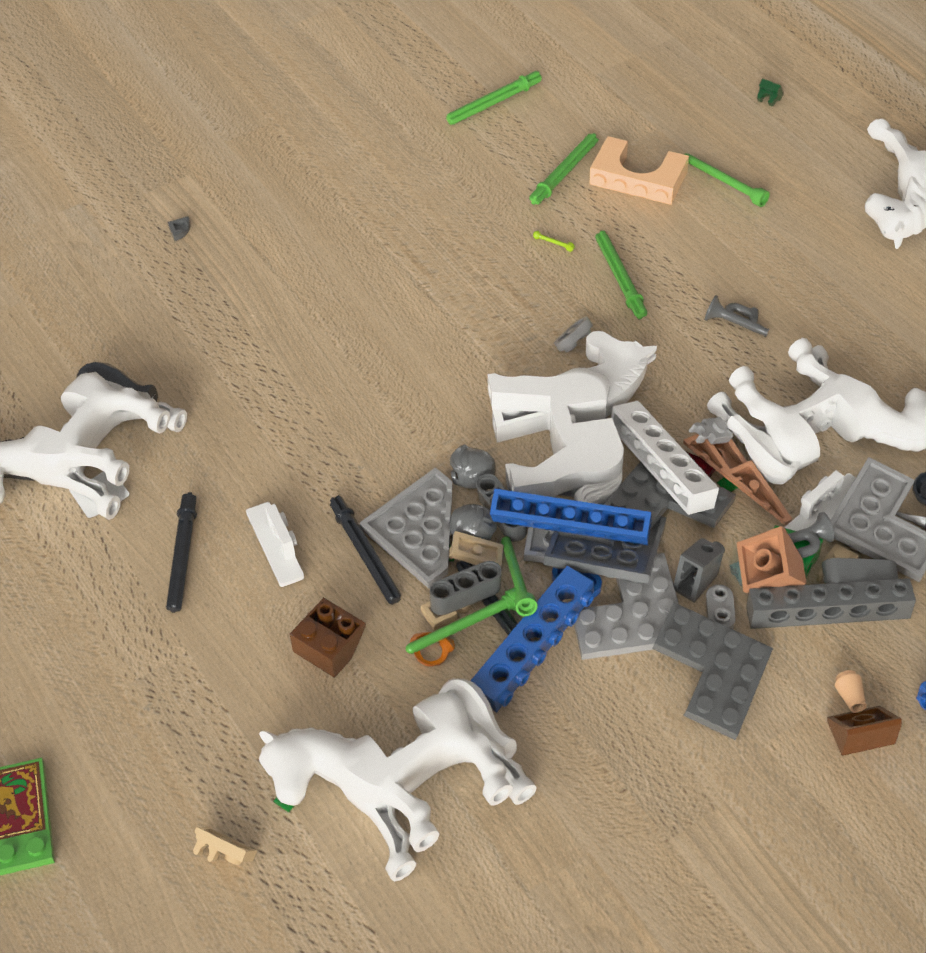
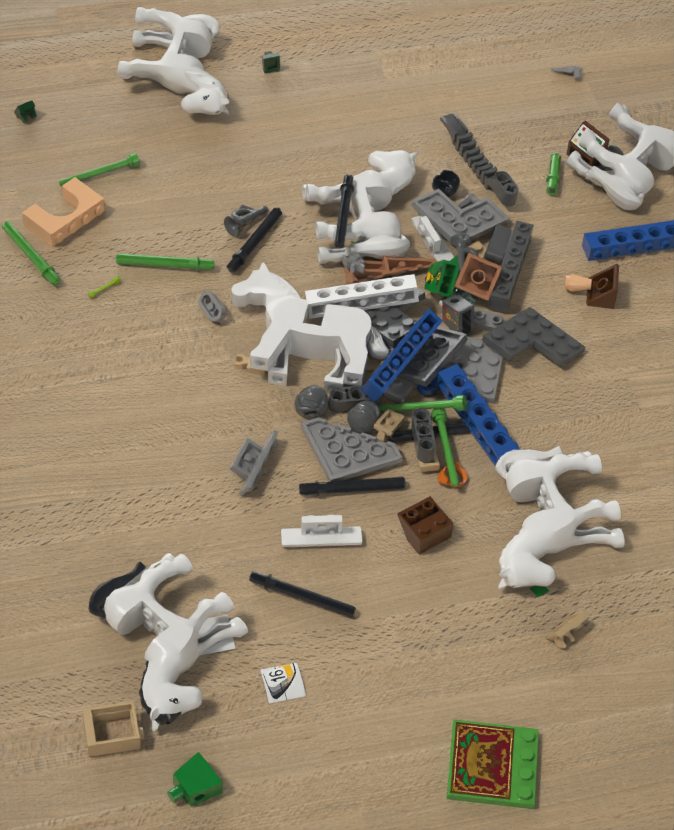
camera: 75 degrees left, 0 degrees up
(54, 575) = (283, 683): none -> sticker
(357, 440) = (250, 459): none -> light grey bracket
(707, 337) = (238, 258): none -> black axle
(742, 525) = (442, 278): none -> green torso
(777, 382) = (346, 191): none -> black axle

